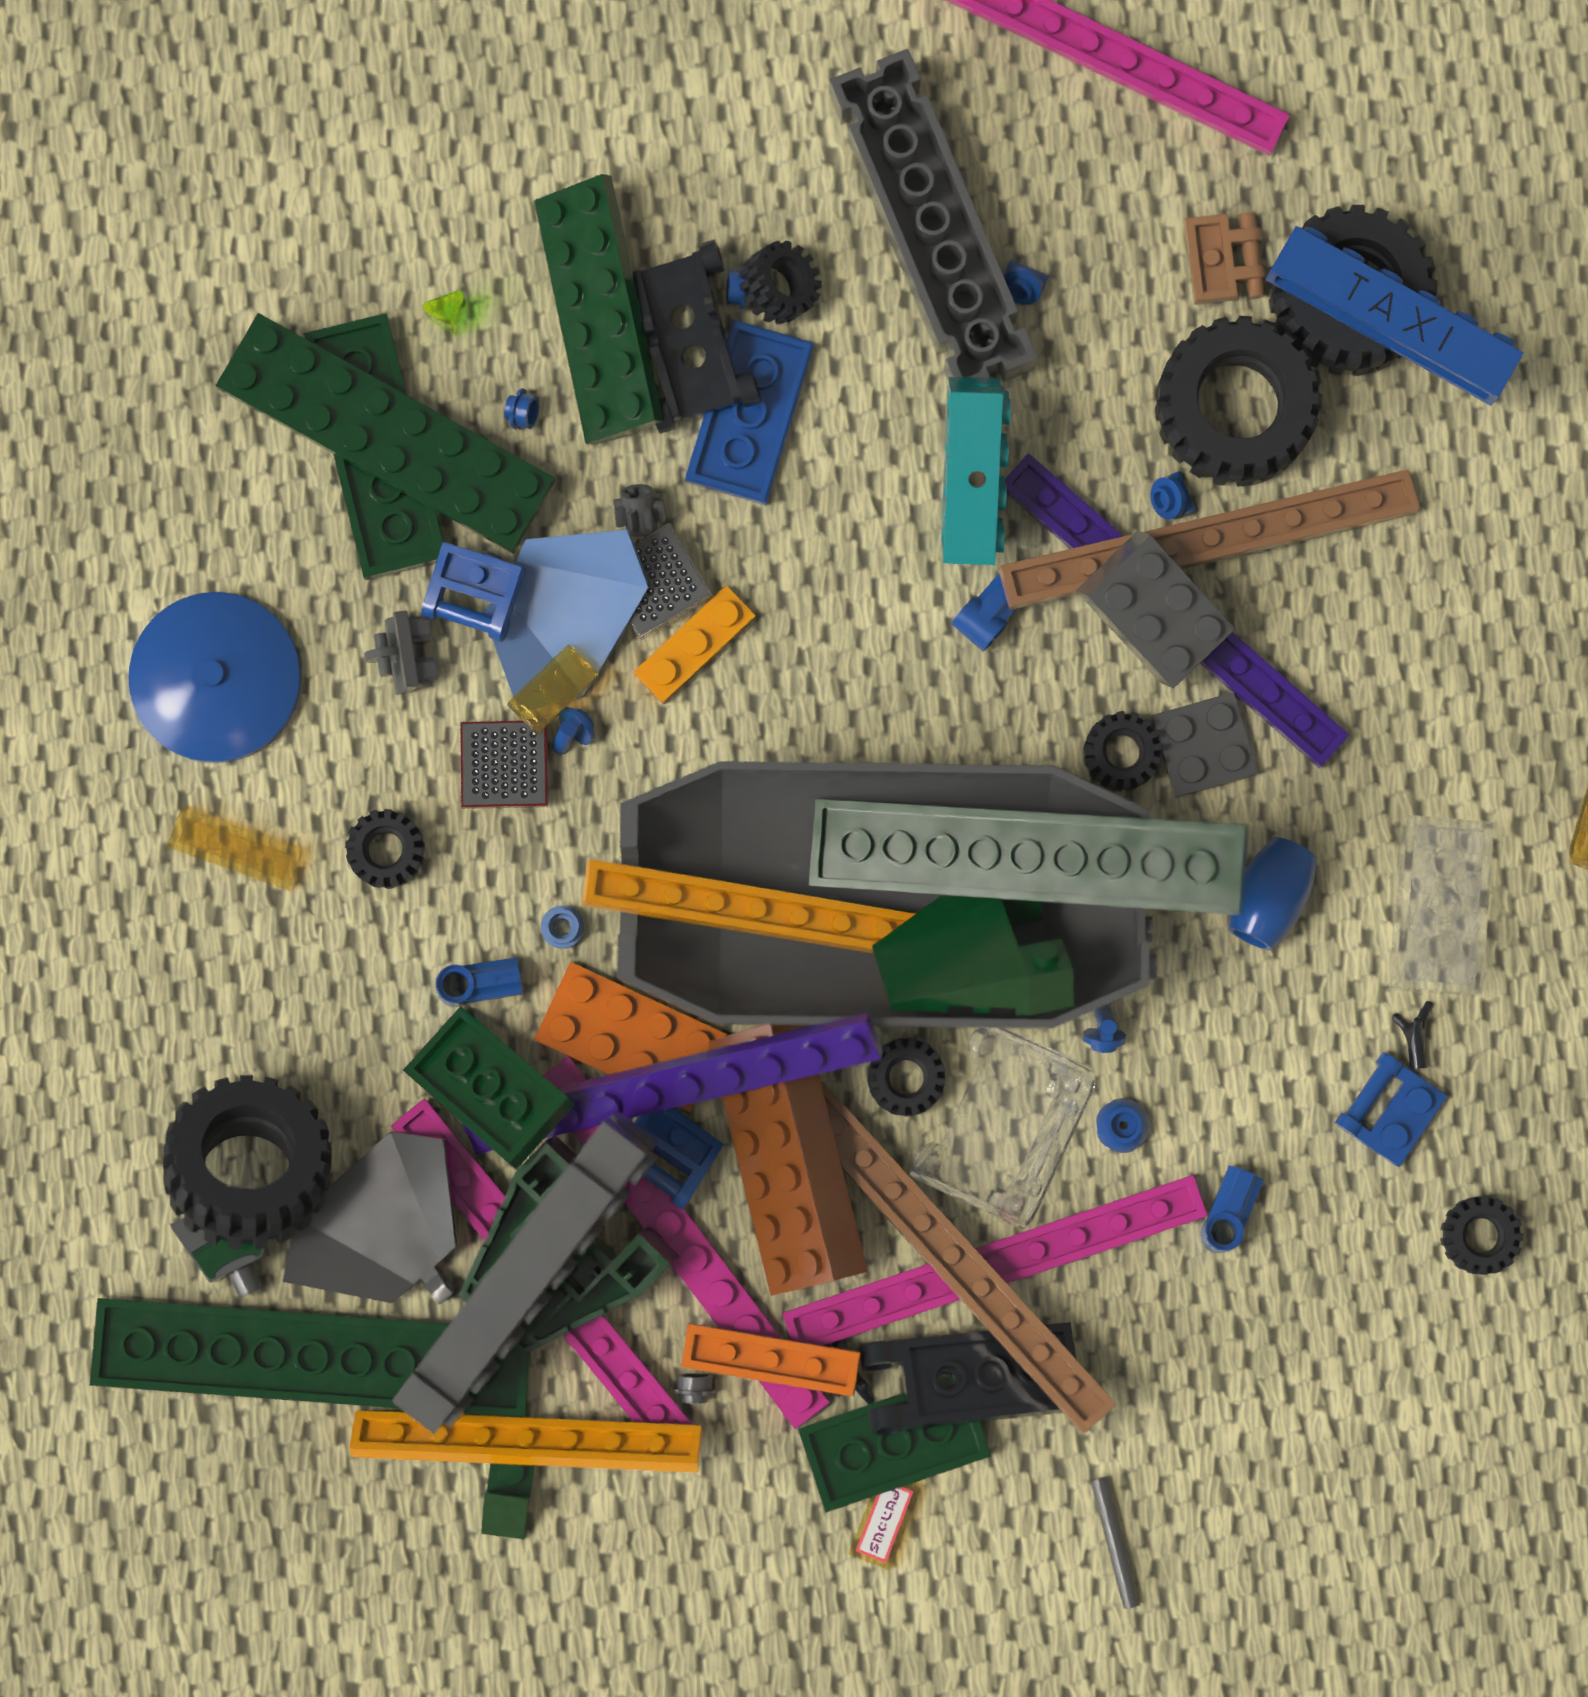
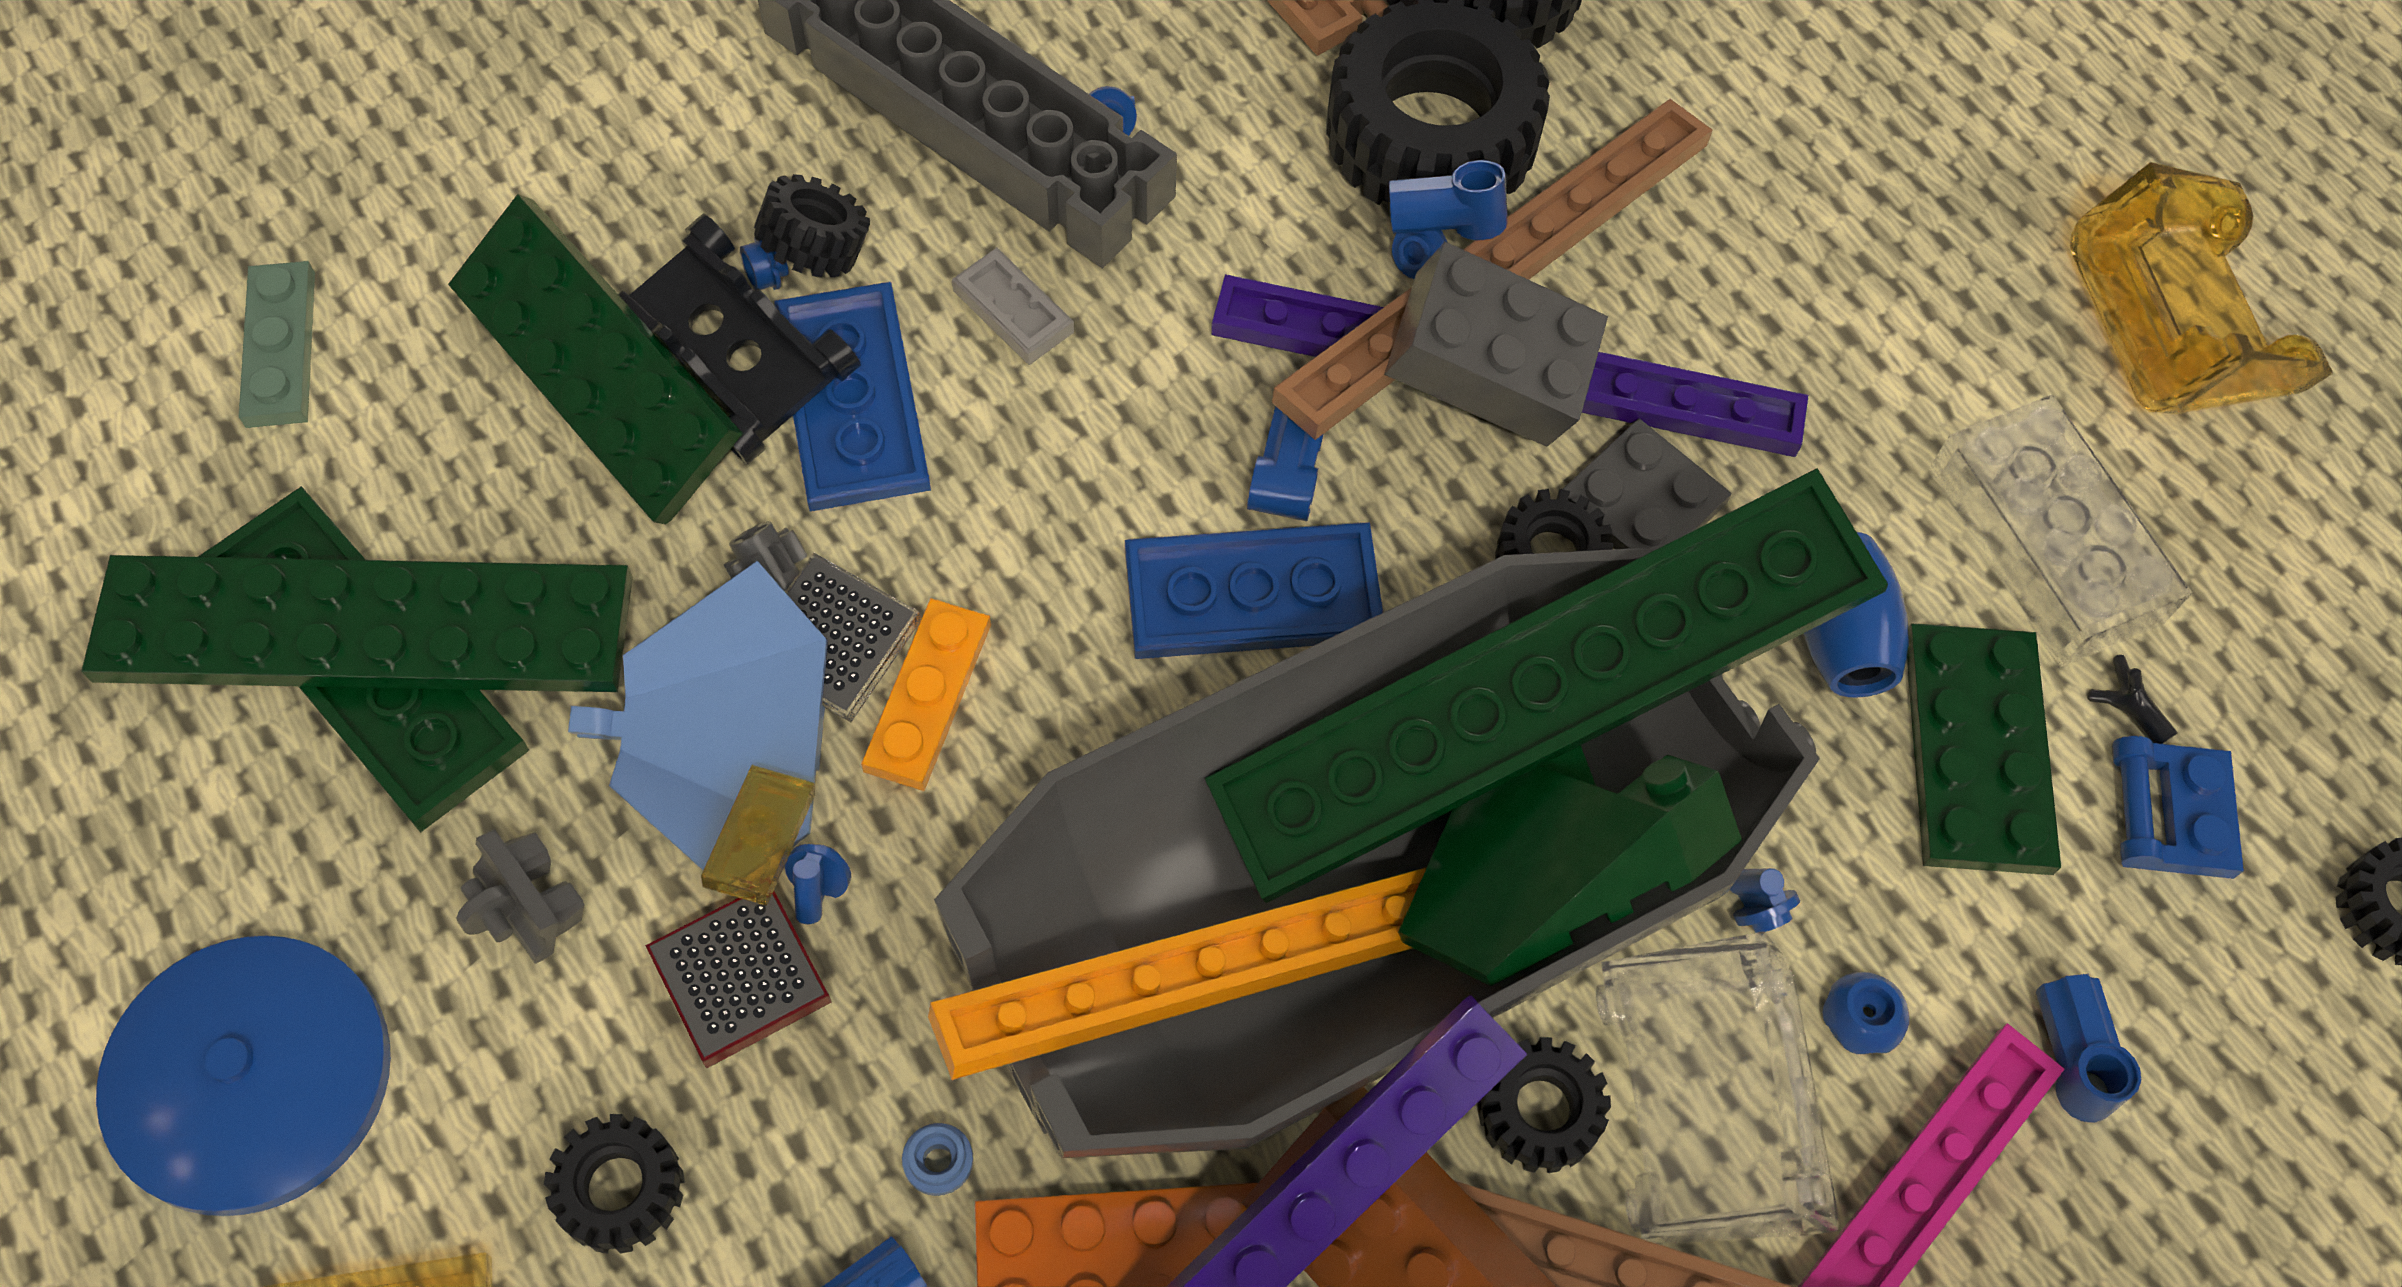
camera: 30 degrees left, 20 degrees down
(411, 189) = (277, 344): none -> sand green plate
(446, 311) = (385, 450): clear neon green slope -> none
(477, 577) = (575, 739): blue plate -> none
(522, 410) = (546, 520): blue plate -> none
(882, 402) = (1013, 306): none -> light grey plate
(925, 679) = (1250, 589): none -> blue tile
(971, 470) = (1174, 293): teal brick -> none
(1192, 484) = (1467, 201): none -> blue piece
(1301, 1011) = (1981, 750): none -> dark green plate

